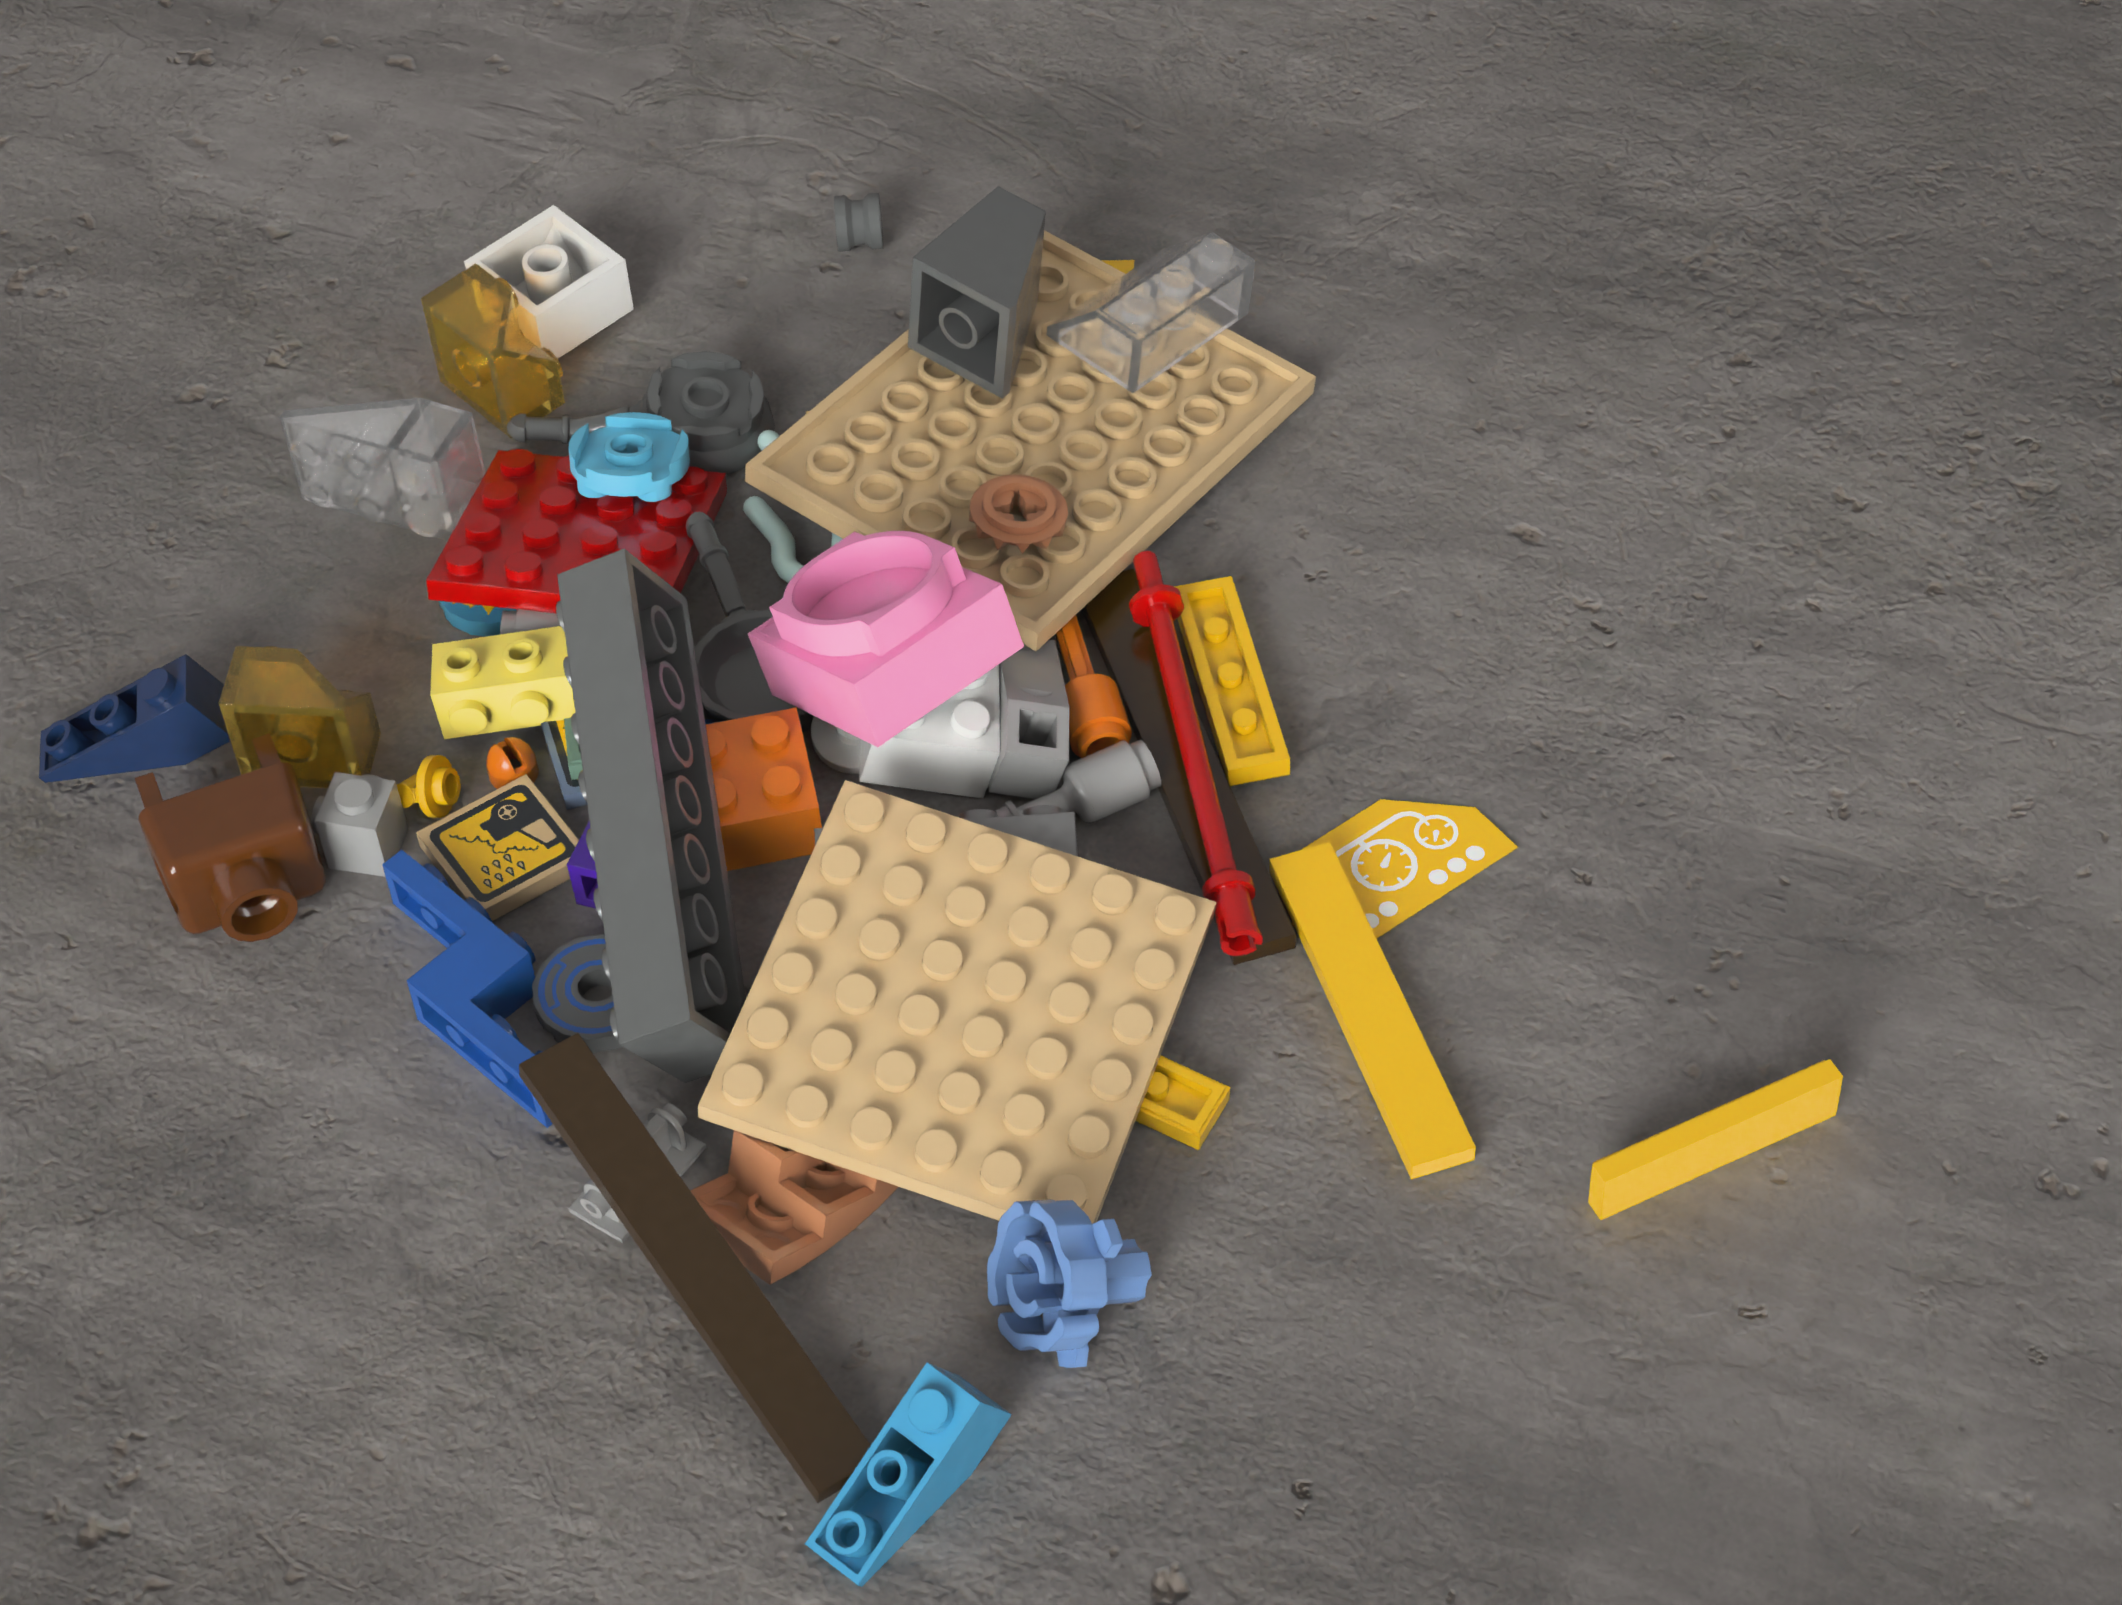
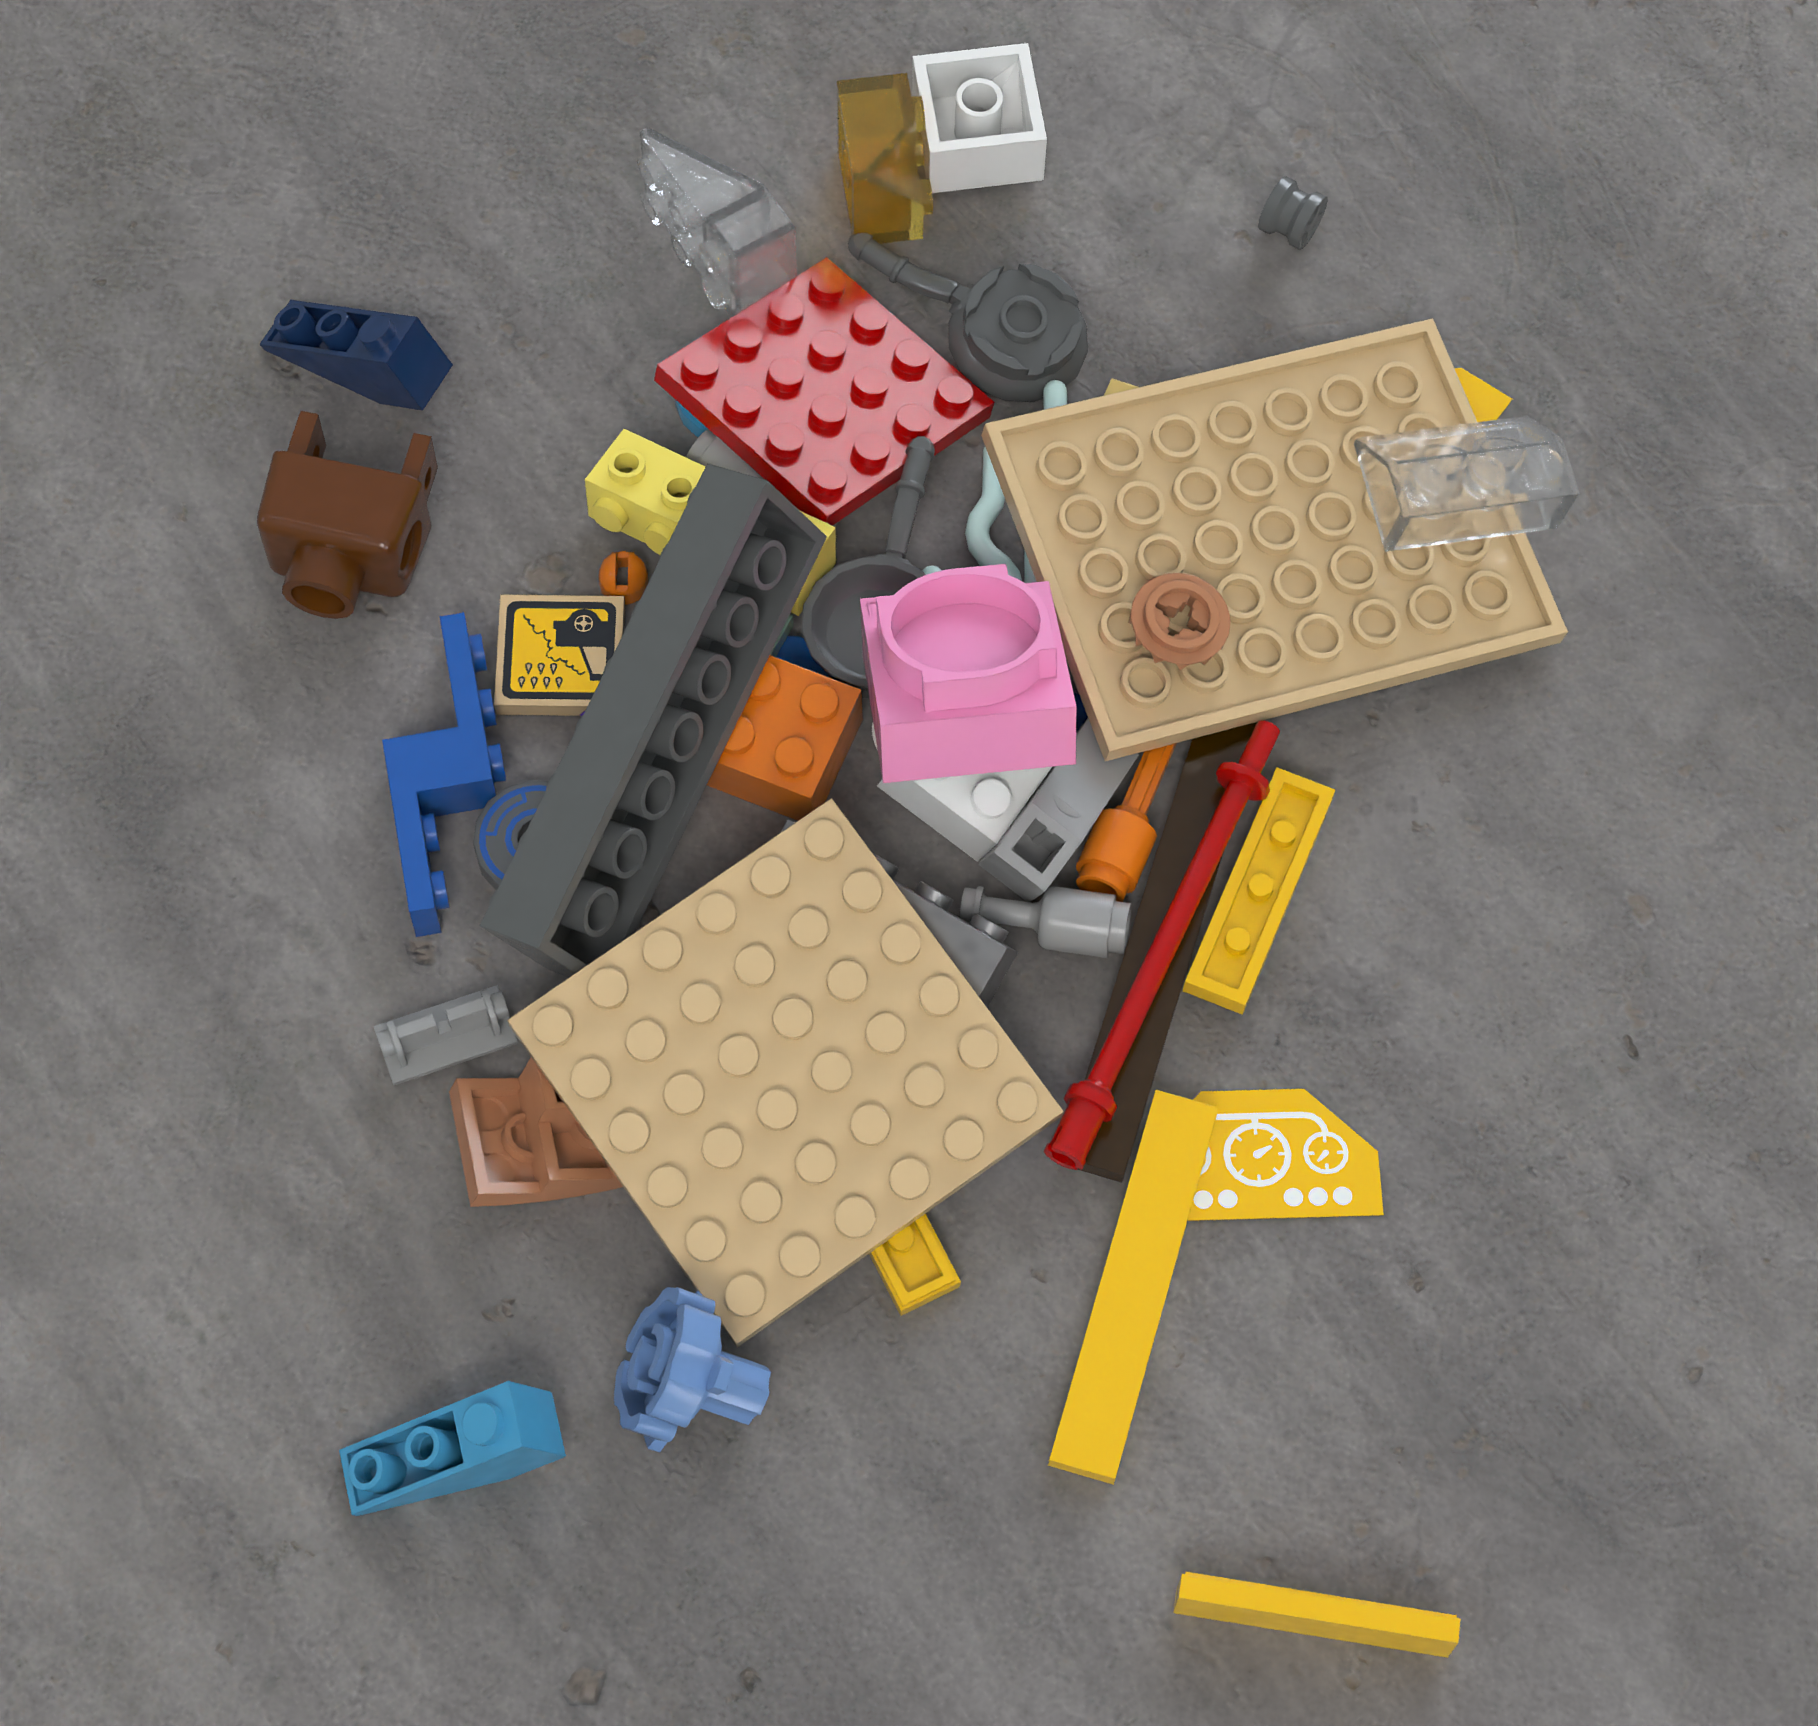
camera: 30 degrees right, 15 degrees up
(303, 712) = (472, 438): clear yellow slope -> none
(360, 823) = (460, 559): light grey brick -> none
(433, 787) = (538, 561): yellow plate -> none
(629, 457) = (905, 368): medium azure plate -> none
(697, 1266) = (417, 1155): dark brown tile -> none
(979, 290) = (1308, 376): dark grey slope -> none

